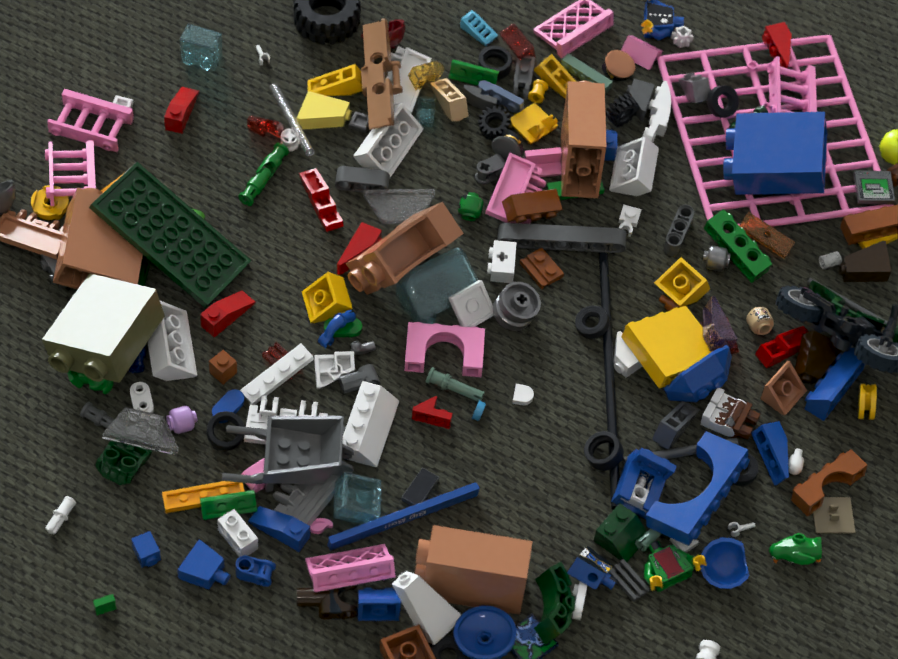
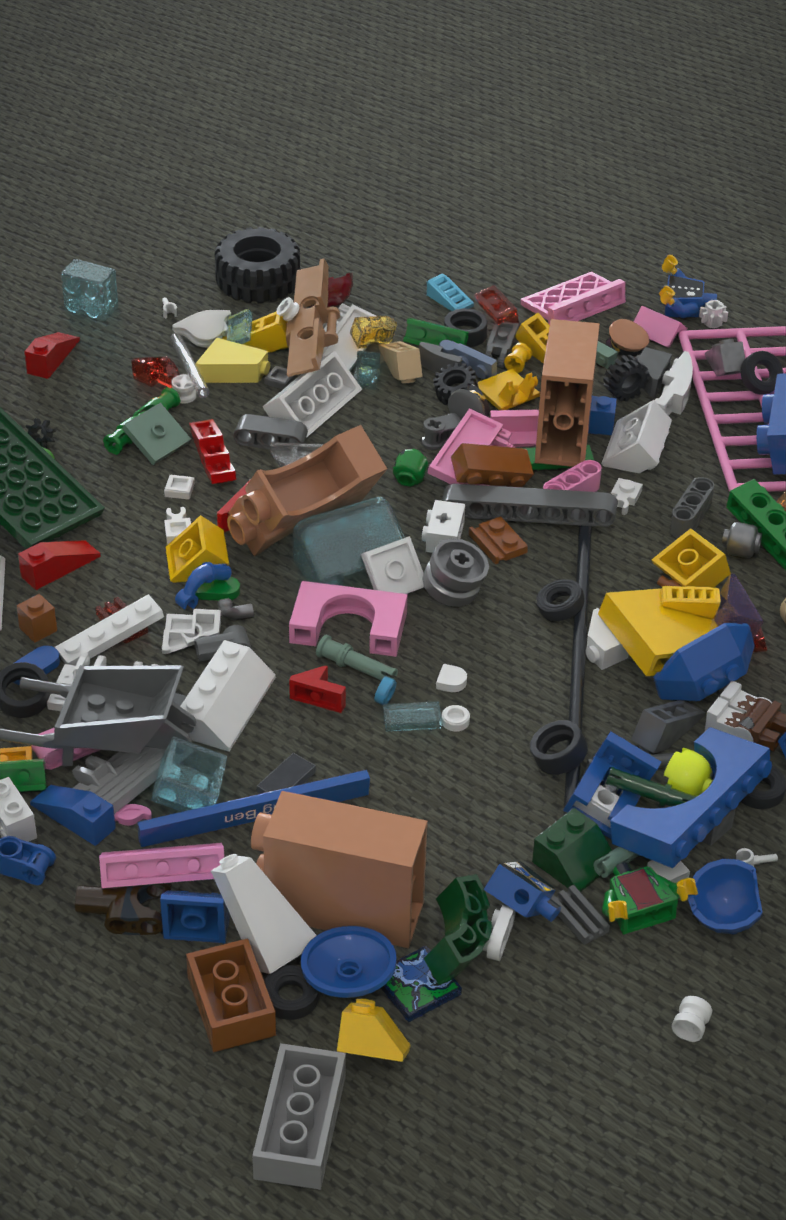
camera: 10 degrees right, 15 degrees down
(185, 191) = (45, 429): none -> black gear
(277, 188) = (156, 433): none -> sand green plate
(297, 79) = (204, 326): none -> white hat
(302, 235) = (179, 487): none -> white tile
(306, 273) = (175, 524): none -> white plate
(323, 78) = (240, 327): none -> clear light blue tile
(361, 65) = (288, 309): none -> white bush
(499, 429) = (412, 716): none -> clear light blue tile
(529, 428) = (455, 718): none -> white tile
(597, 210) = (581, 477): none -> bright pink beam
(670, 486) = (647, 788): none -> dark green pin
(692, 322) = (693, 600): none -> yellow slope
(694, 473) = (689, 772): none -> neon yellow cylinder

